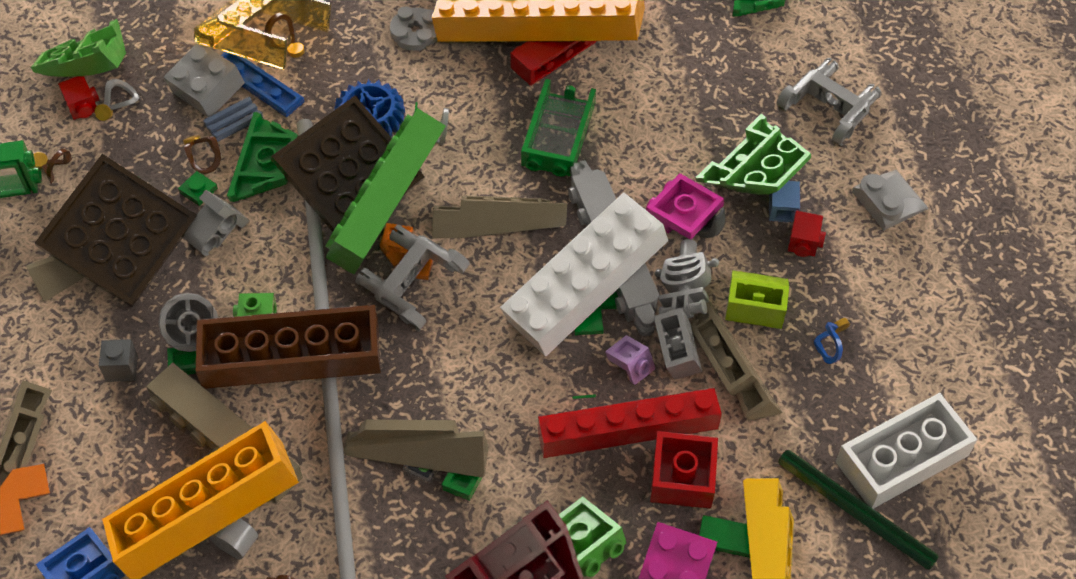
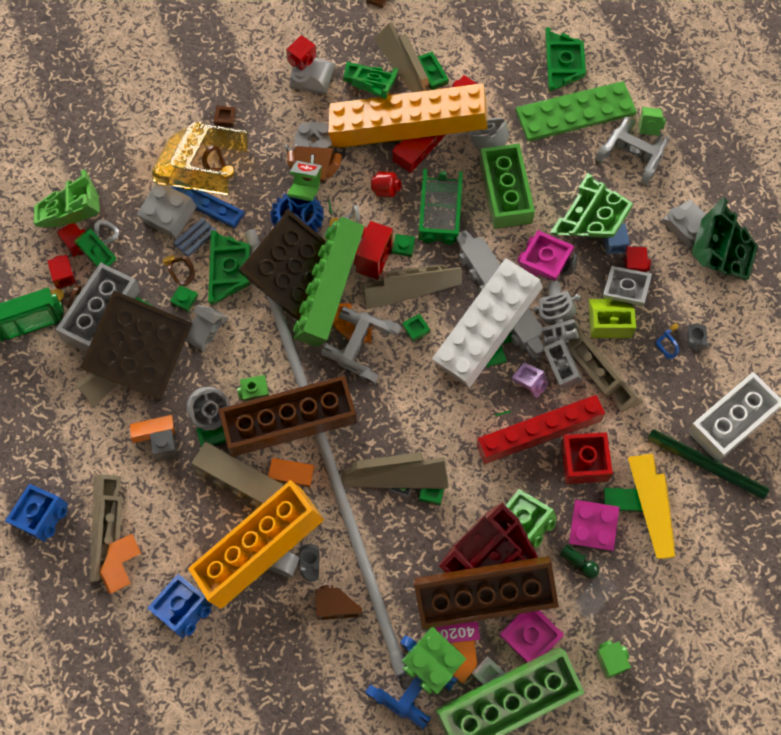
camera: 10 degrees left, 10 degrees up
(51, 132) = (61, 271): none -> red brick
(54, 187) = (88, 308): none -> light grey brick
(91, 338) = (141, 430): none -> orange tile
(100, 112) = (94, 248): none -> green plate
(271, 542) = (309, 562): none -> dark grey hair
(287, 425) = (286, 470): none -> orange tile
(382, 77) = (305, 189): none -> bright green piece
(407, 54) = (316, 155): none -> dark orange torso
(456, 164) = (373, 250): none -> red brick
(491, 269) = (416, 327): none -> green plate
(493, 91) = (385, 184): none -> red head
(499, 168) = (403, 245): none -> green plate
(642, 55) = (494, 136): none -> light grey cylinder
(650, 116) = (506, 186): none -> bright green brick
(763, 43) = (575, 111): none -> bright green plate
(786, 259) = (627, 286): none -> light grey slope
(860, 67) = (651, 121): none -> bright green brick
(873, 341) = (697, 337): none -> dark grey hair
(932, 228) = (724, 243): none -> dark green wedge

